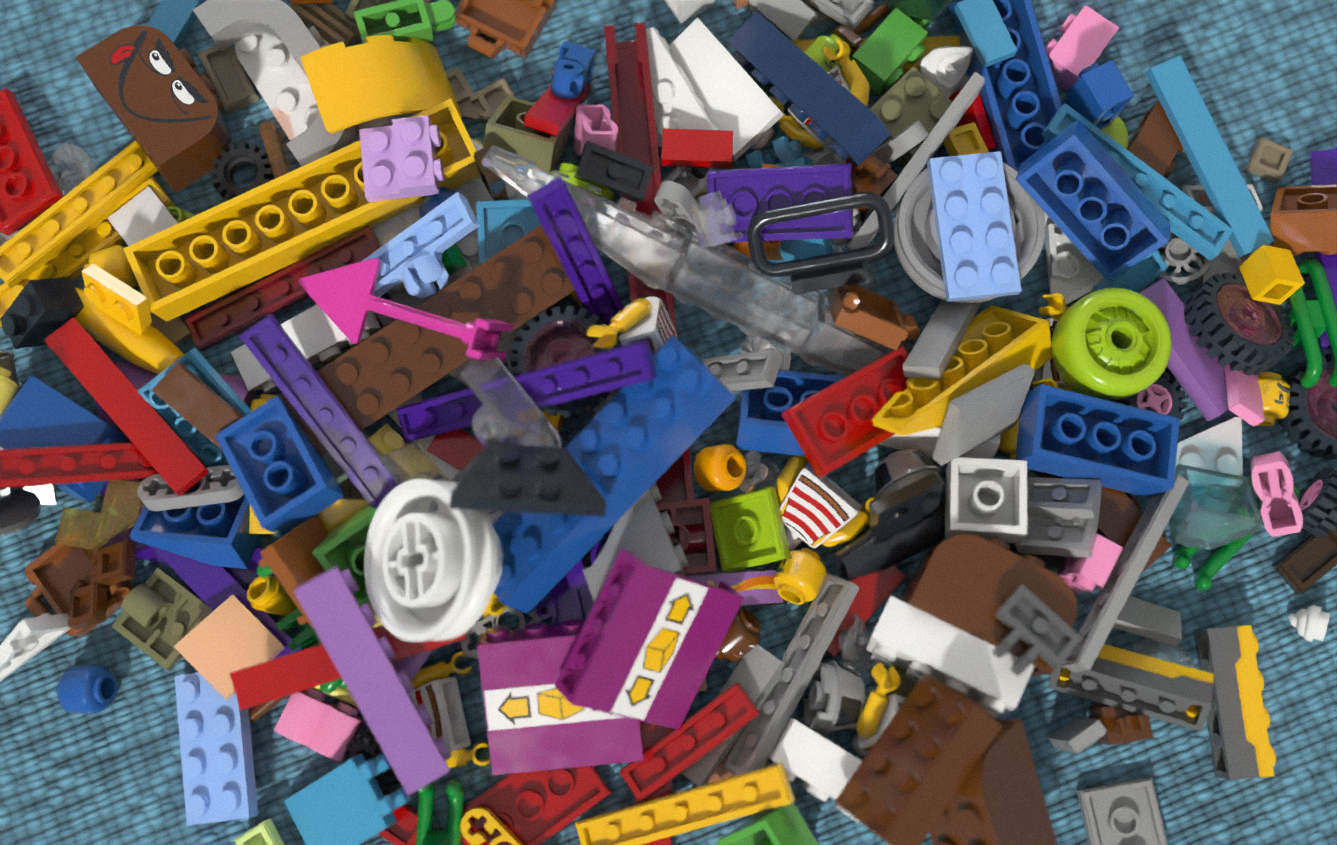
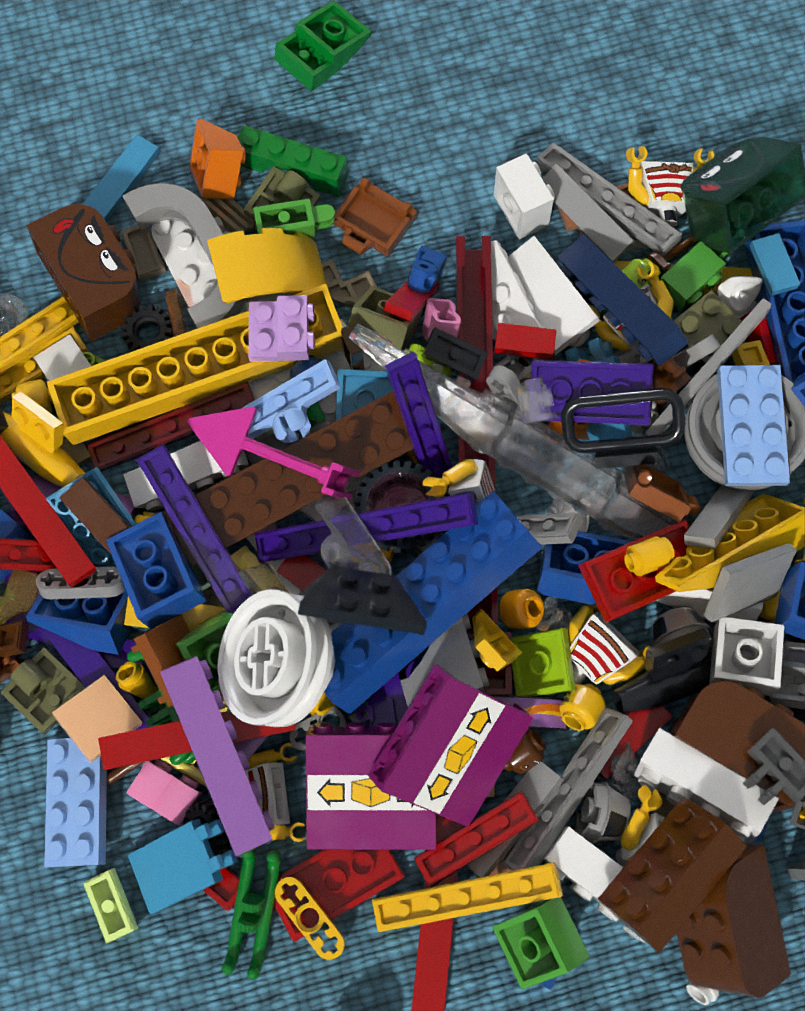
camera: 10 degrees right, 5 degrees down
(688, 514) = (492, 643): none -> yellow wing
(863, 394) = (649, 555): none -> yellow brick

